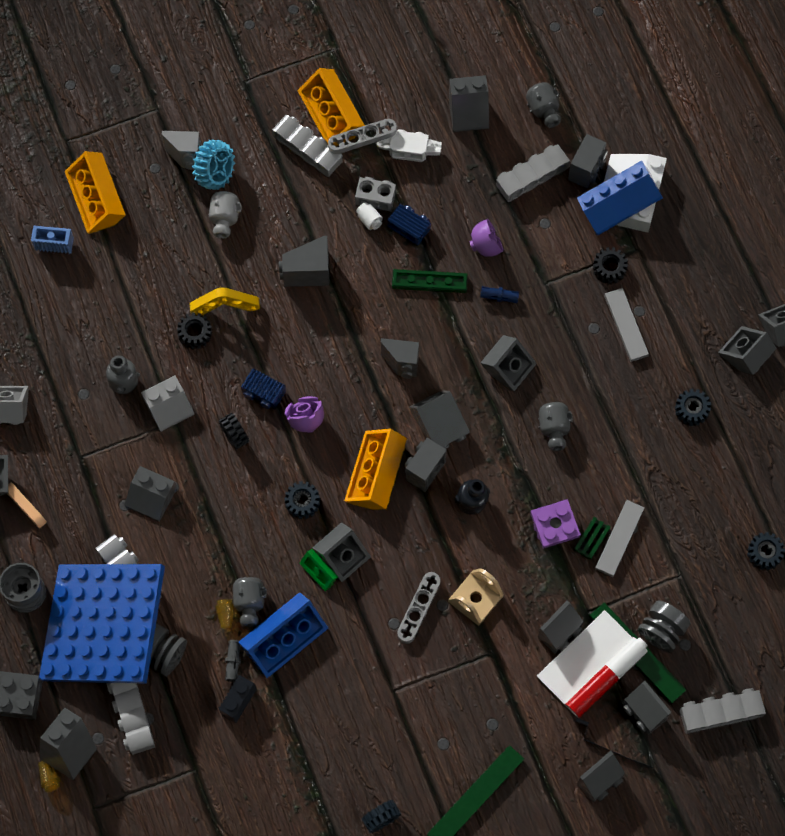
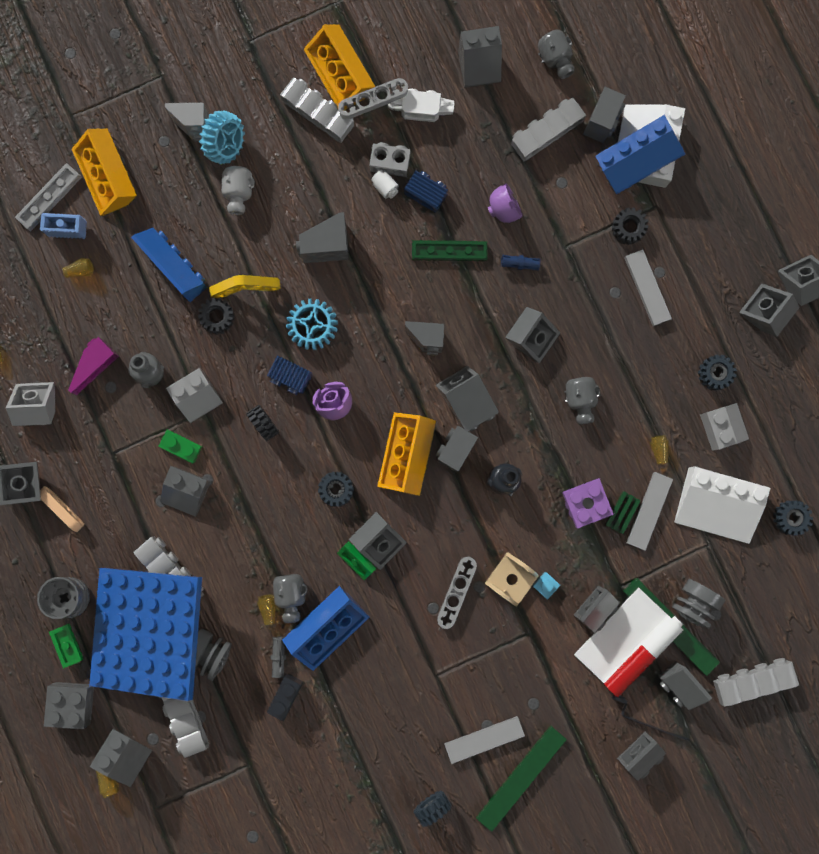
camera: 10 degrees left, 15 degrees up
(19, 638) = (66, 645): none -> green plate
(38, 213) = (48, 196): none -> light grey tile
(63, 280) = (79, 268): none -> clear yellow cone
(70, 367) = (92, 363): none -> magenta slope
(149, 452) = (180, 446): none -> green plate
(153, 279) = (169, 262): none -> blue slope
(303, 348) = (314, 308): none -> medium azure gear
(439, 755) = (484, 739): none -> light grey tile
(510, 605) = (546, 585): none -> medium azure plate
(632, 477) = (660, 448): none -> clear yellow cone
(692, 534) = (721, 504): none -> white slope
(698, 459) = (724, 427): none -> light grey slope

